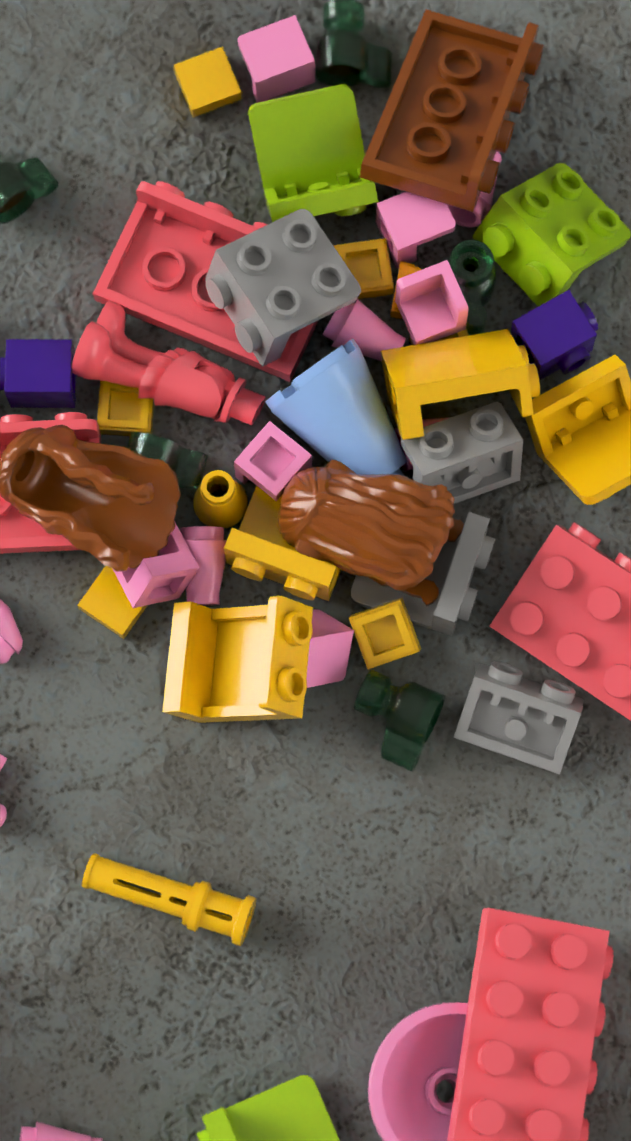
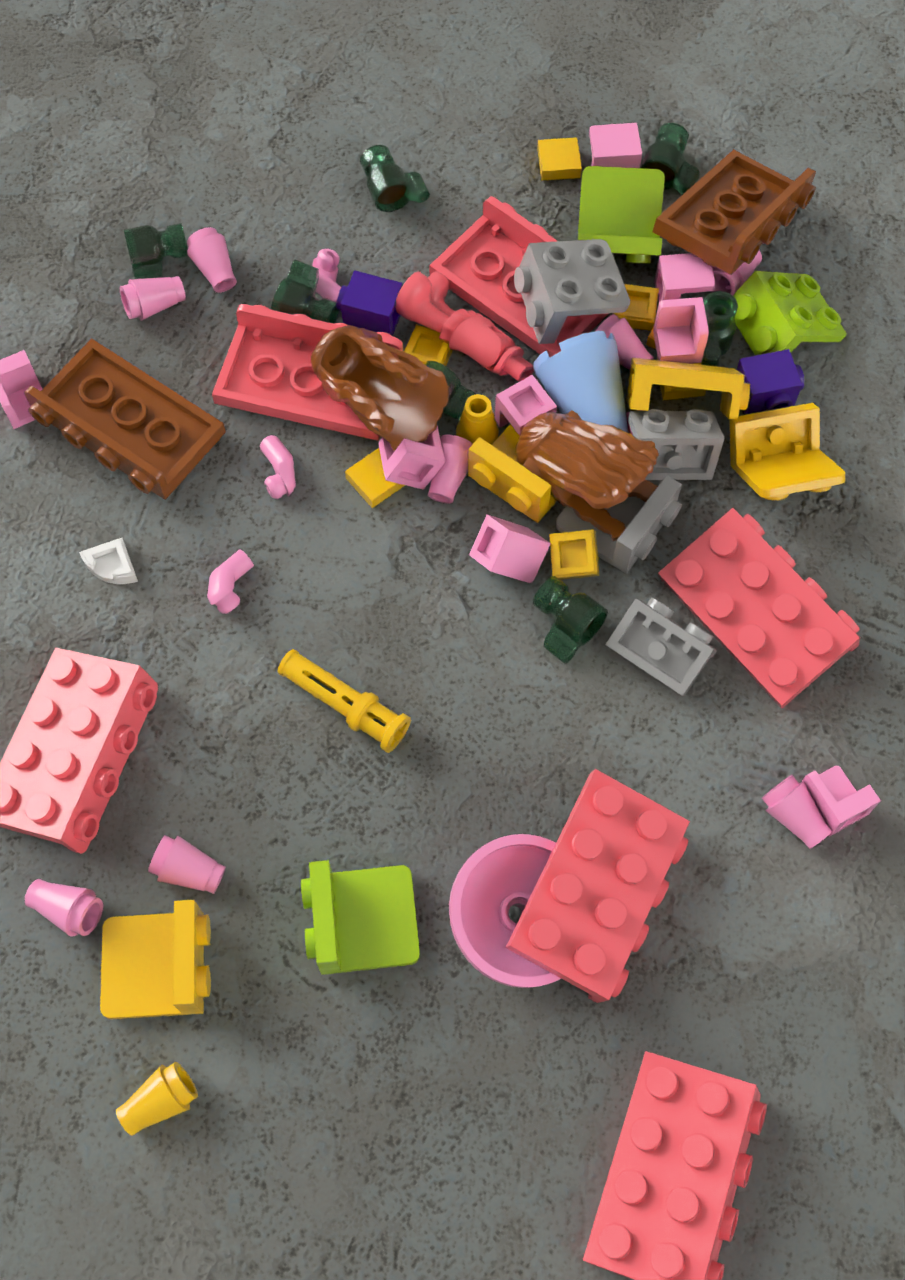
camera: 15 degrees right, 10 degrees down
(238, 661) = (454, 537): yellow panel -> none

